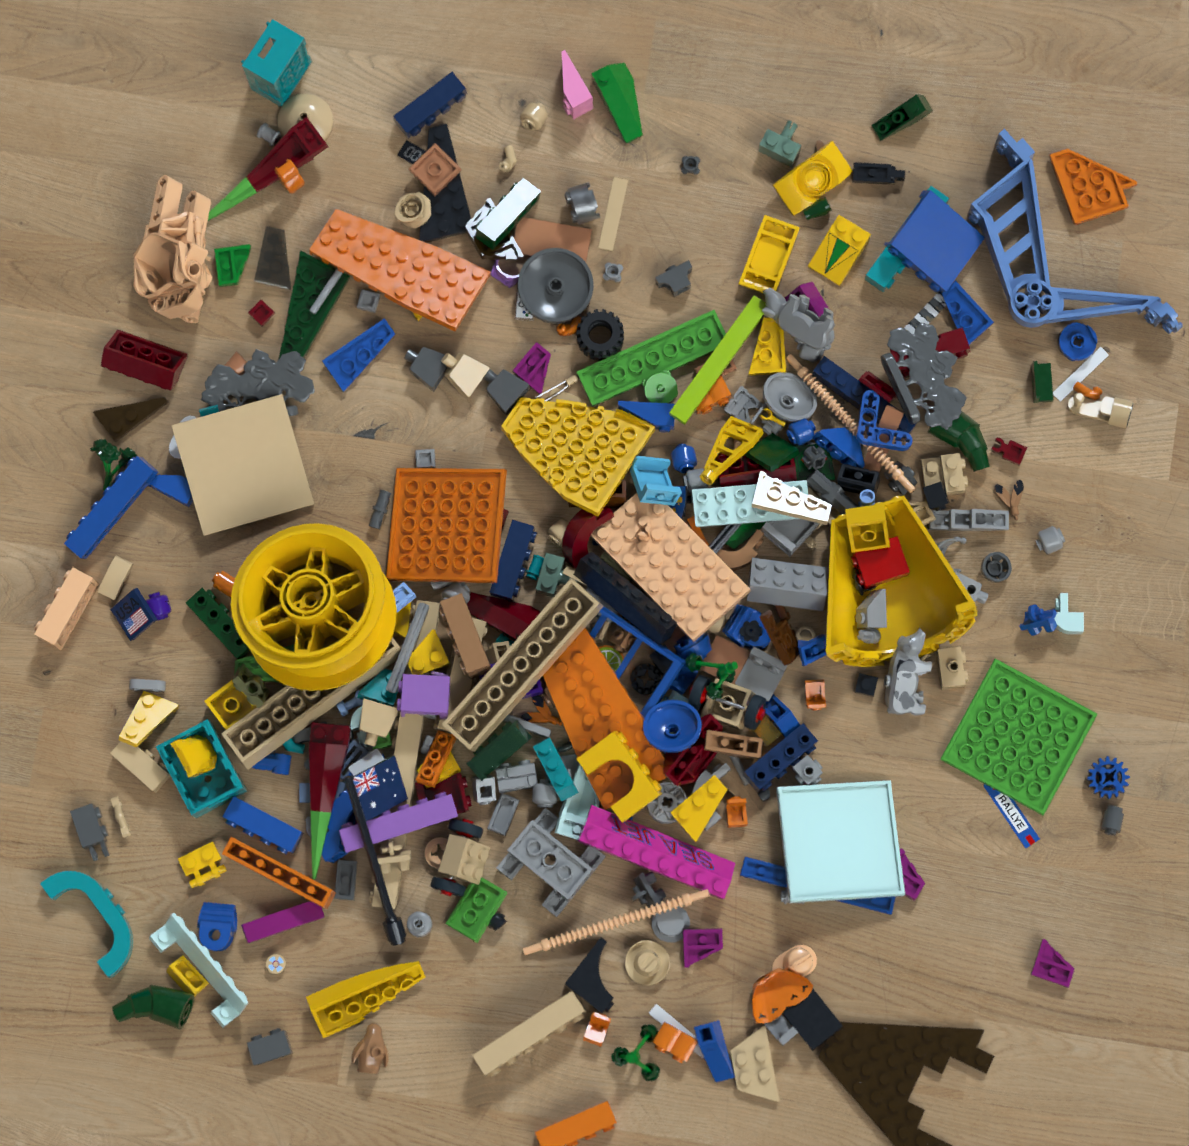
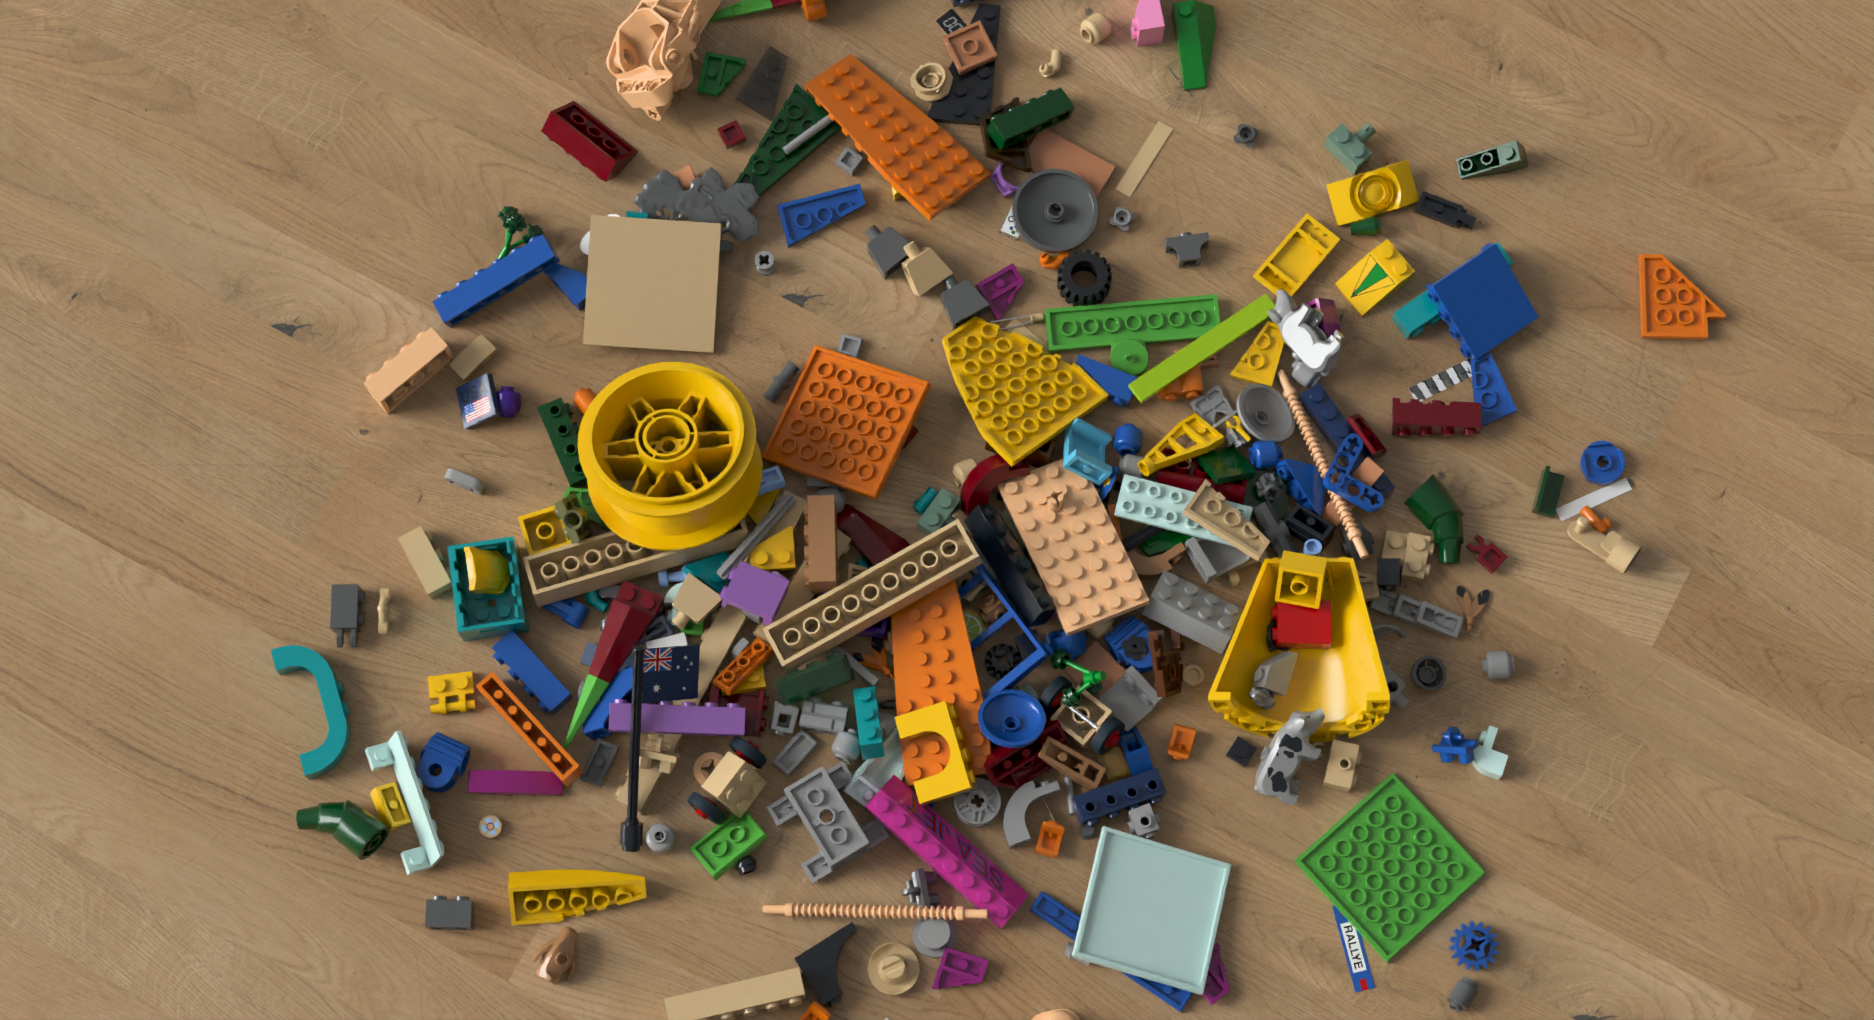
camera: 15 degrees right, 5 degrees down
(124, 418) = (545, 195): dark brown wing -> none
(145, 717) = (450, 513): yellow wing -> none
(327, 408) = (764, 256): none -> light grey bush
(512, 560) = (903, 484): dark blue brick -> none
(582, 203) = (1114, 135): flat silver brick -> none
(683, 680) = (1042, 675): blue bracket -> none
(699, 807) = (1010, 818): yellow wing -> none
(812, 649) = (1194, 692): blue slope -> none
(928, 370) = (1425, 432): dark grey plant -> none
(1052, 304) = (1586, 412): medium blue piece -> none

